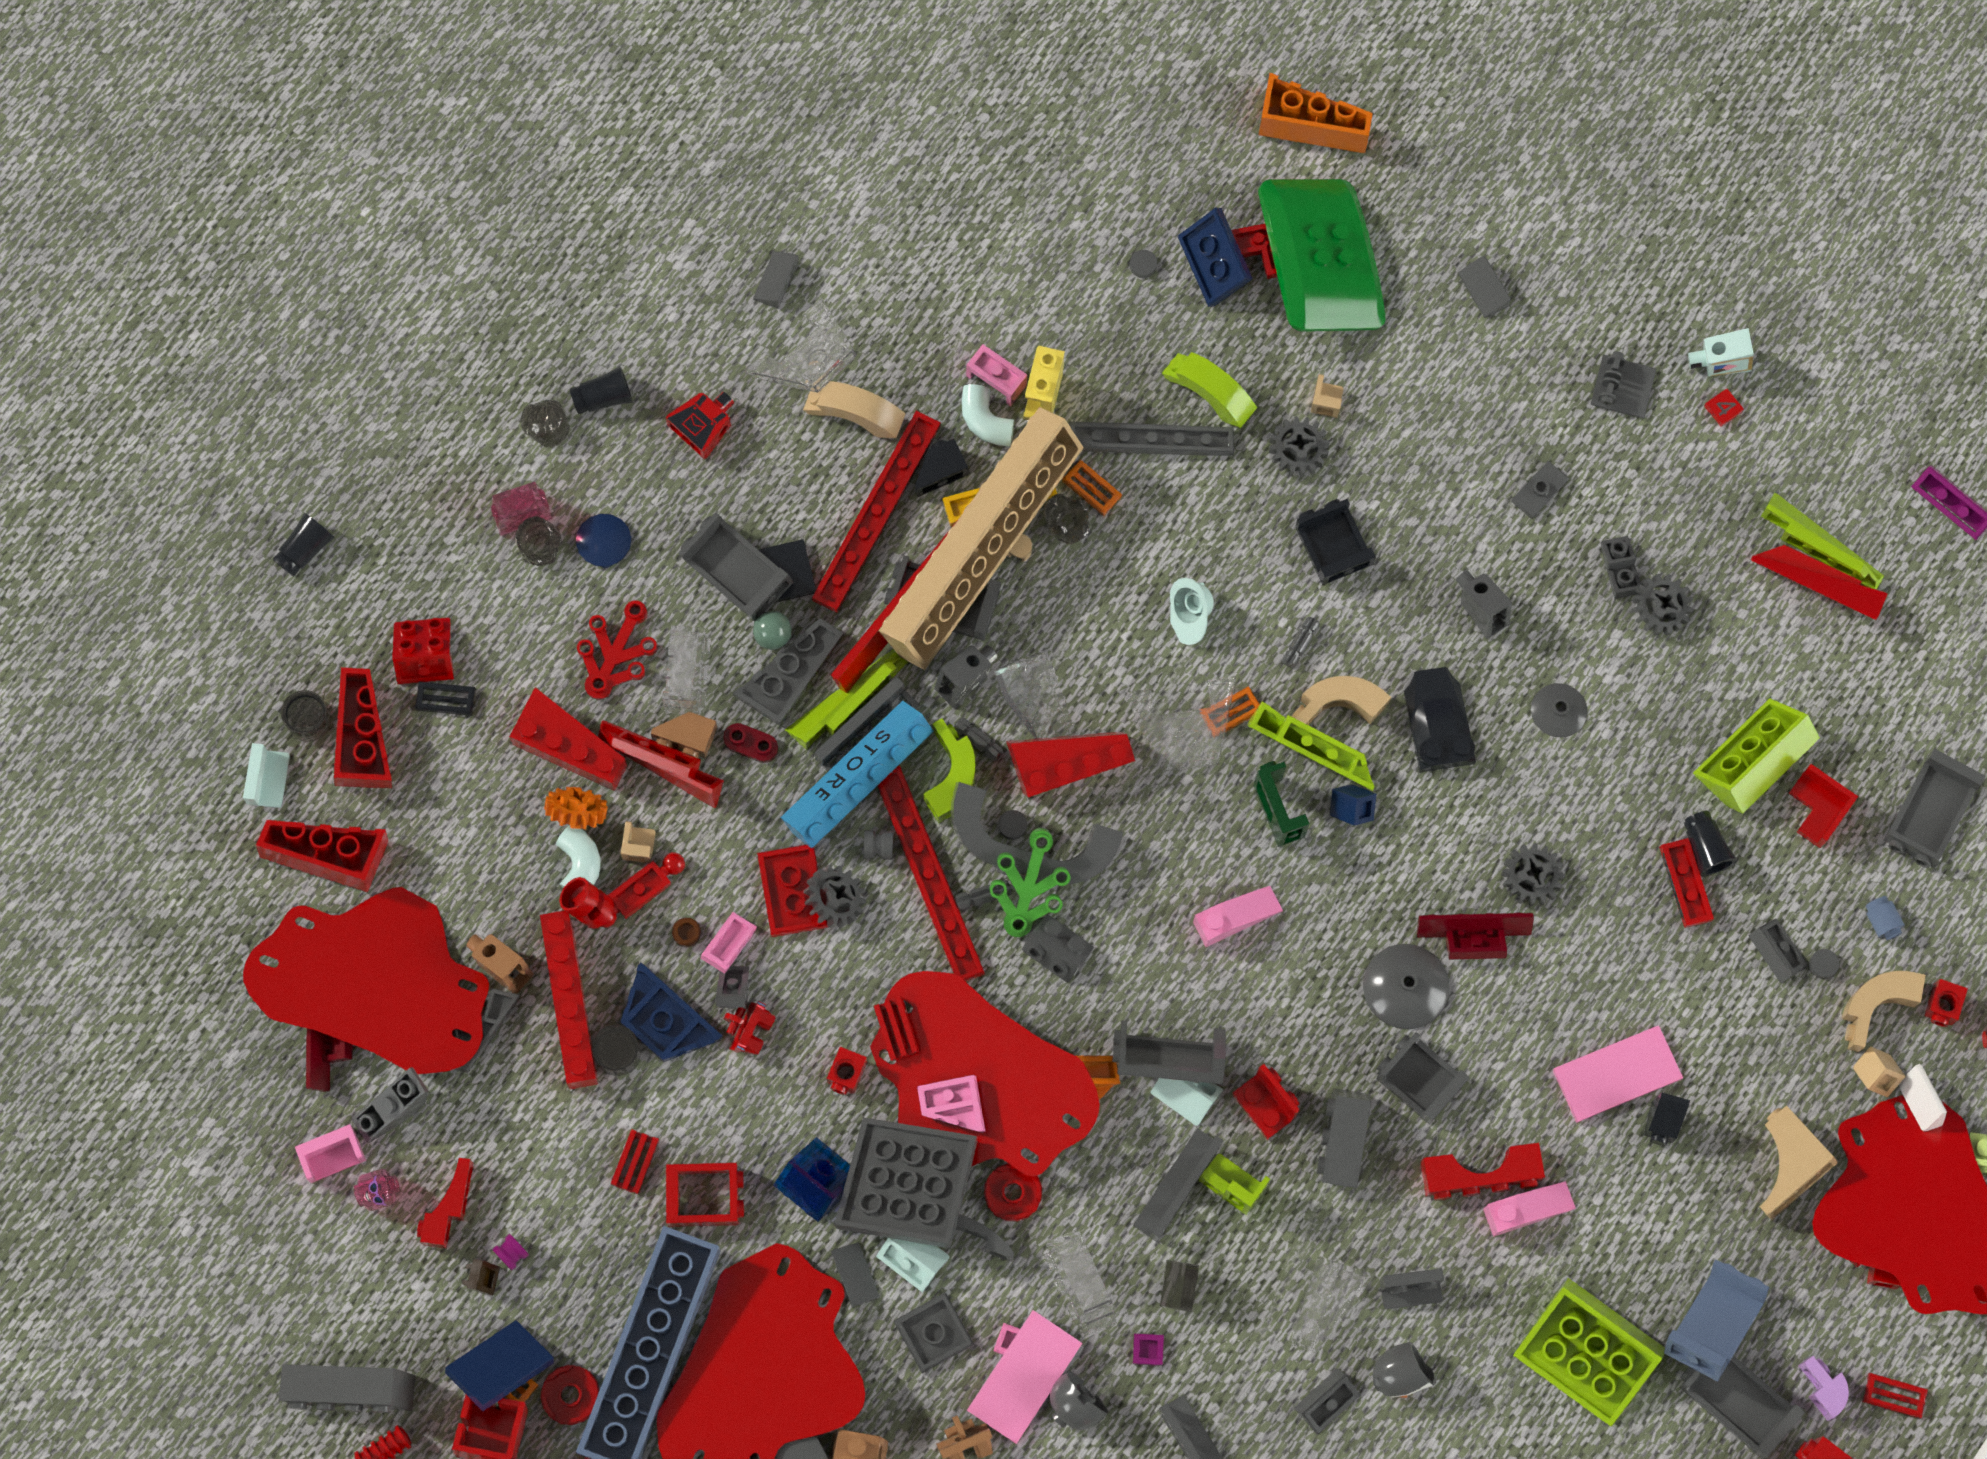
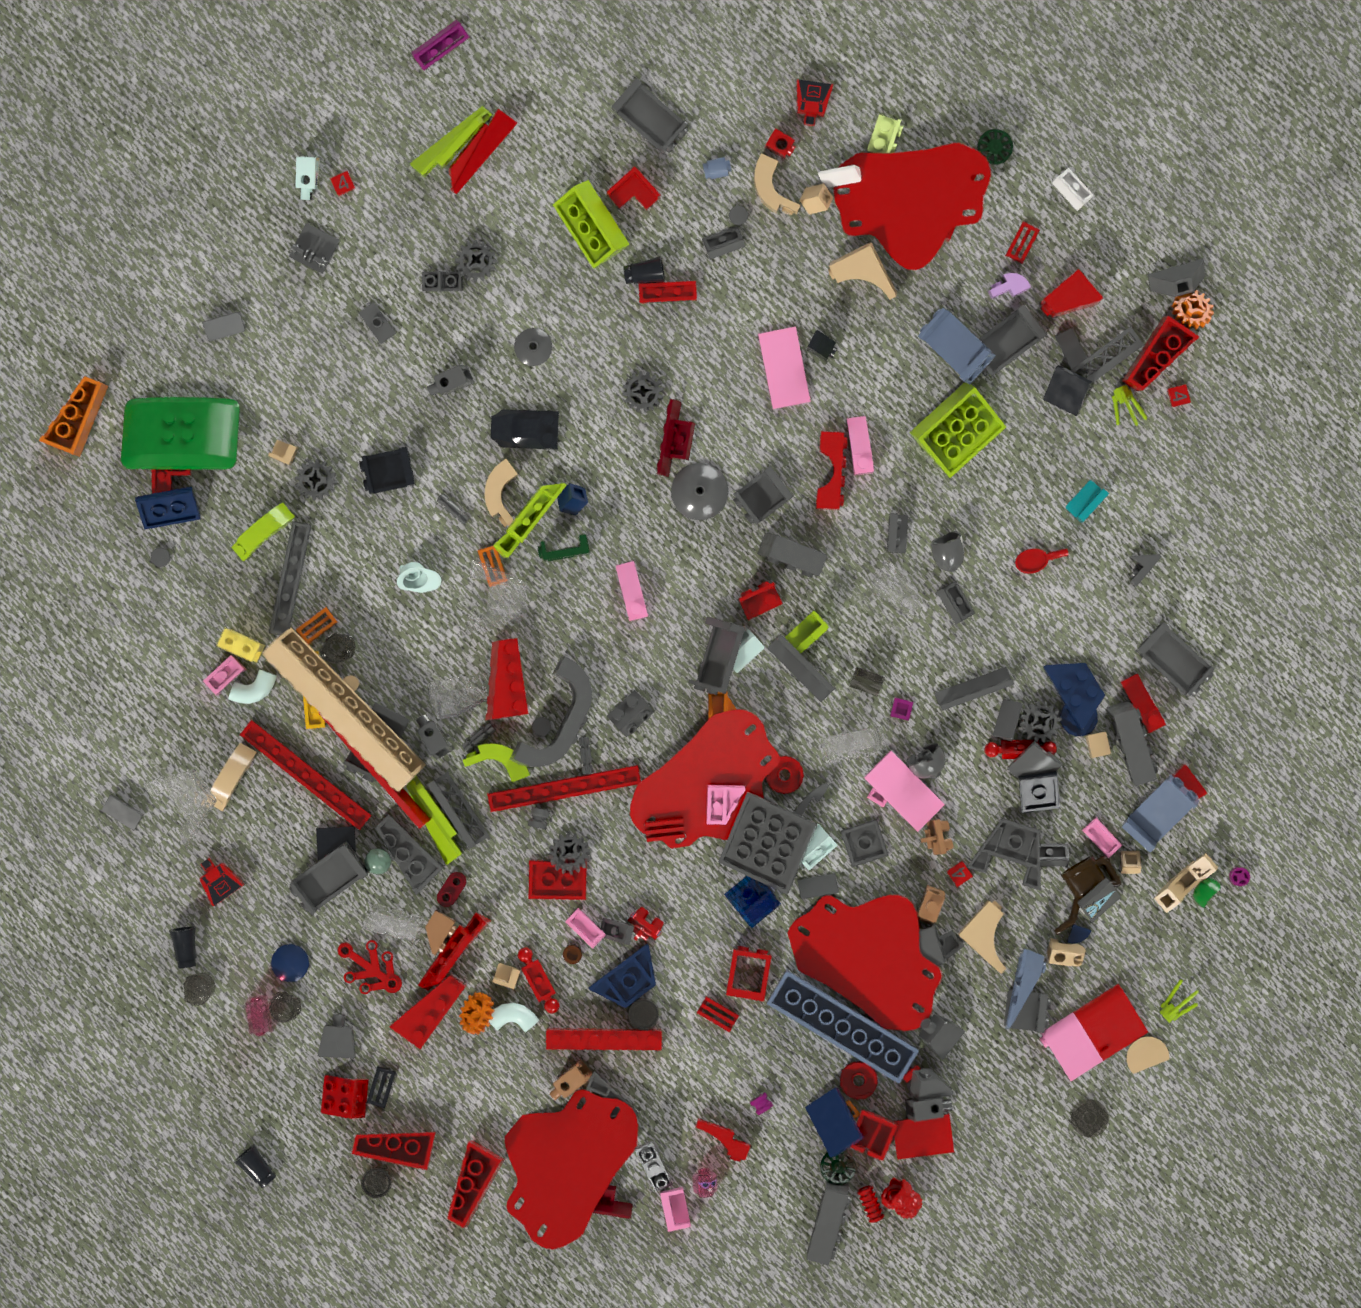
camera: 75 degrees left, 15 degrees up
(266, 777) = (413, 1214): light aqua panel -> none
(430, 1388) = (838, 1168): none -> dark green wheel
(482, 1277) = (774, 1124): dark brown tile -> none
(504, 623) = (337, 1039): none -> dark grey torso
(586, 903) = (544, 1017): red wheel -> none
(850, 1059) = (677, 867): red brick -> none
(857, 774) = (489, 823): dark azure brick -> none
(941, 467) = (282, 725): black slope -> none
(1028, 888) = (589, 725): bright green plant -> none

